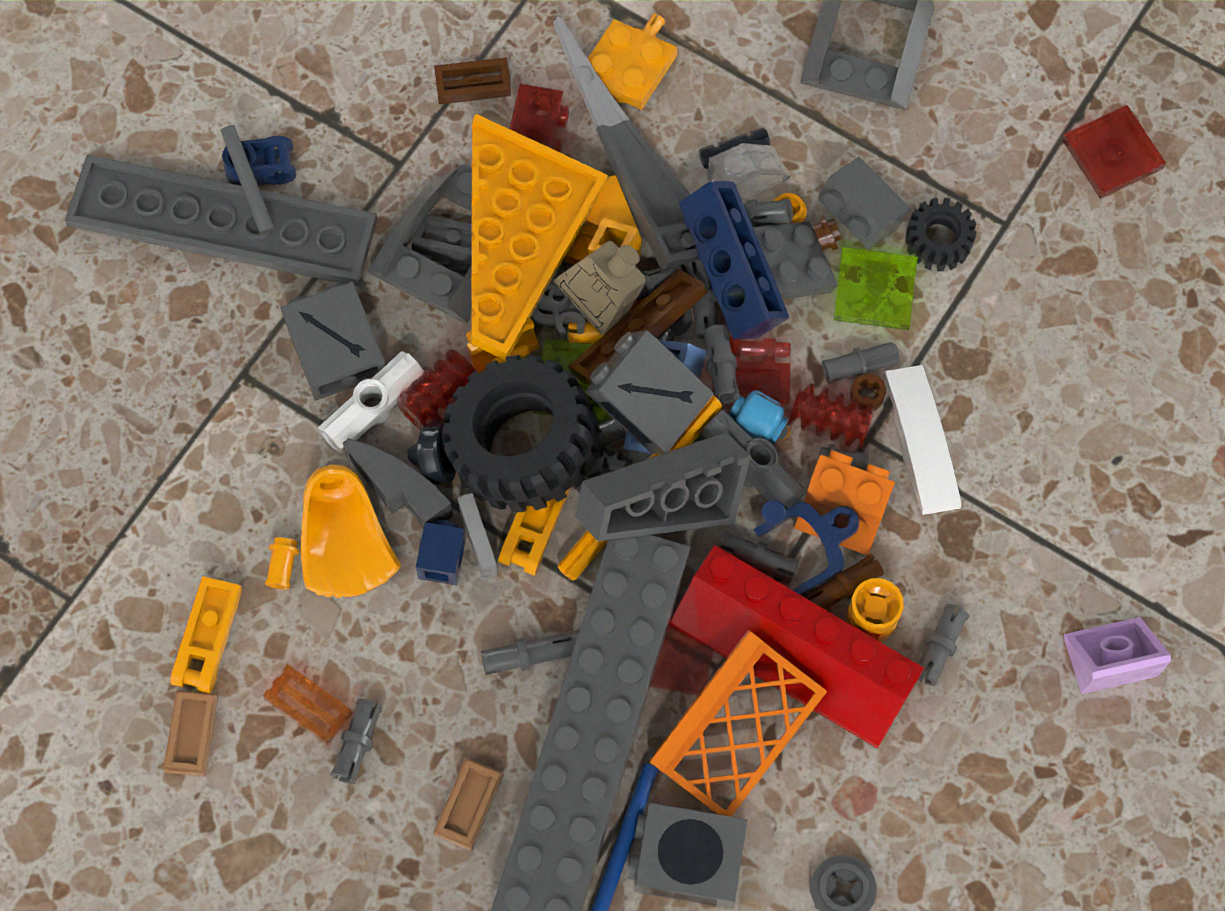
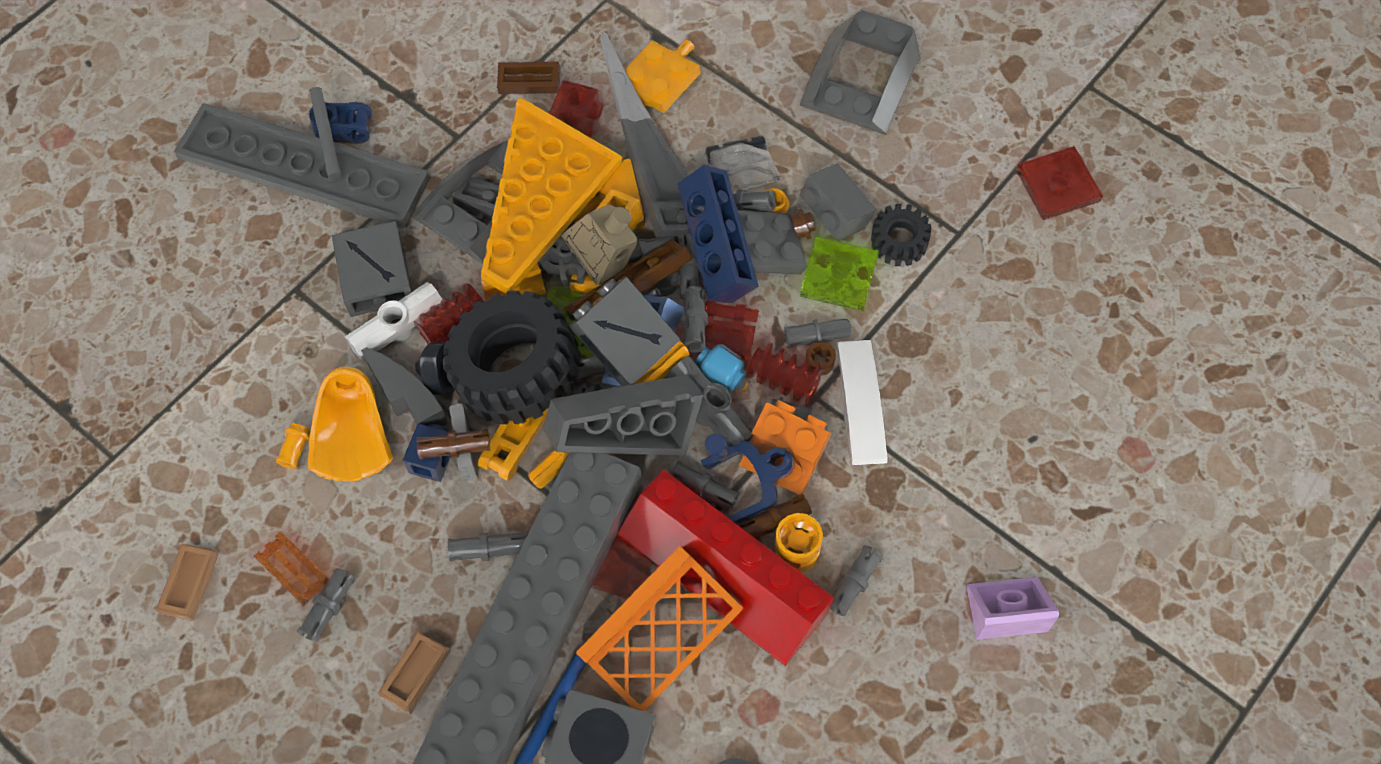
camera: 10 degrees right, 5 degrees down
(206, 634) = (217, 499): light orange plate -> none
(473, 542) = (453, 444): none -> reddish brown pin

